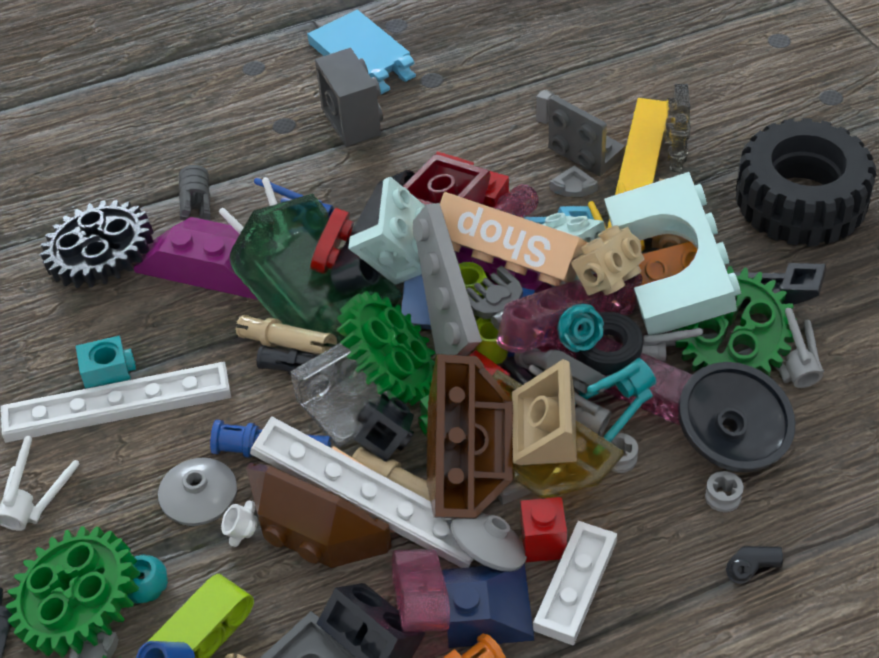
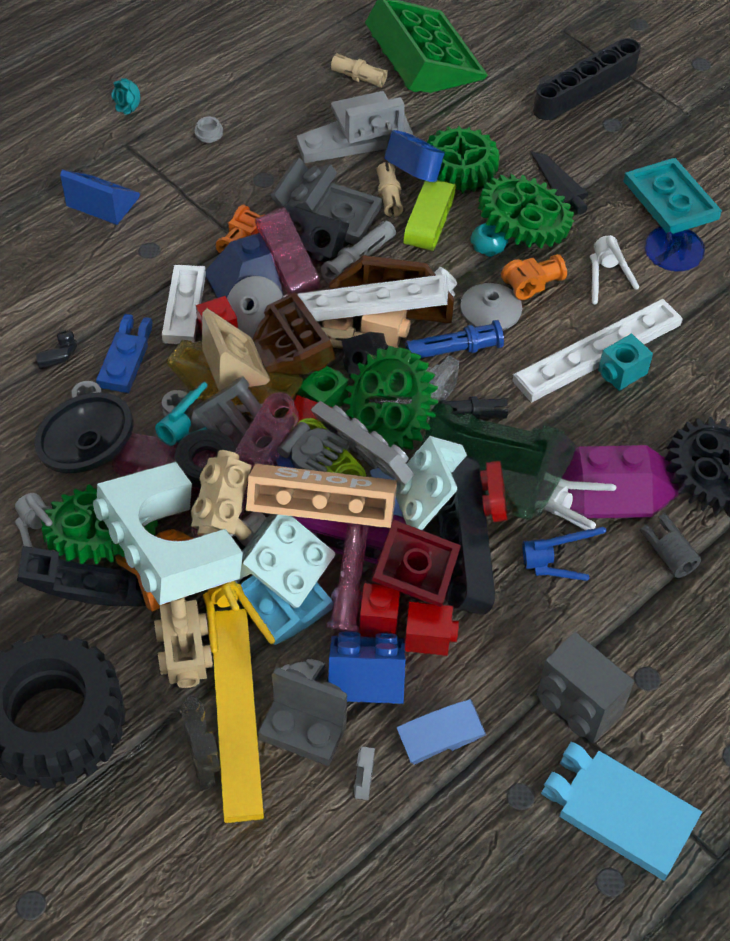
camera: 155 degrees right, 5 degrees up
(128, 500) = (533, 275): none -> orange connector
(273, 333) = (506, 416): tan pin -> none
(316, 598) = (366, 246): none -> light grey pin
(465, 111) = (441, 731): none -> medium blue slope
(520, 156) = (368, 667): none -> blue slope
(589, 333) = (230, 433): teal plate -> none
(668, 536) = (124, 355): none -> blue hinge

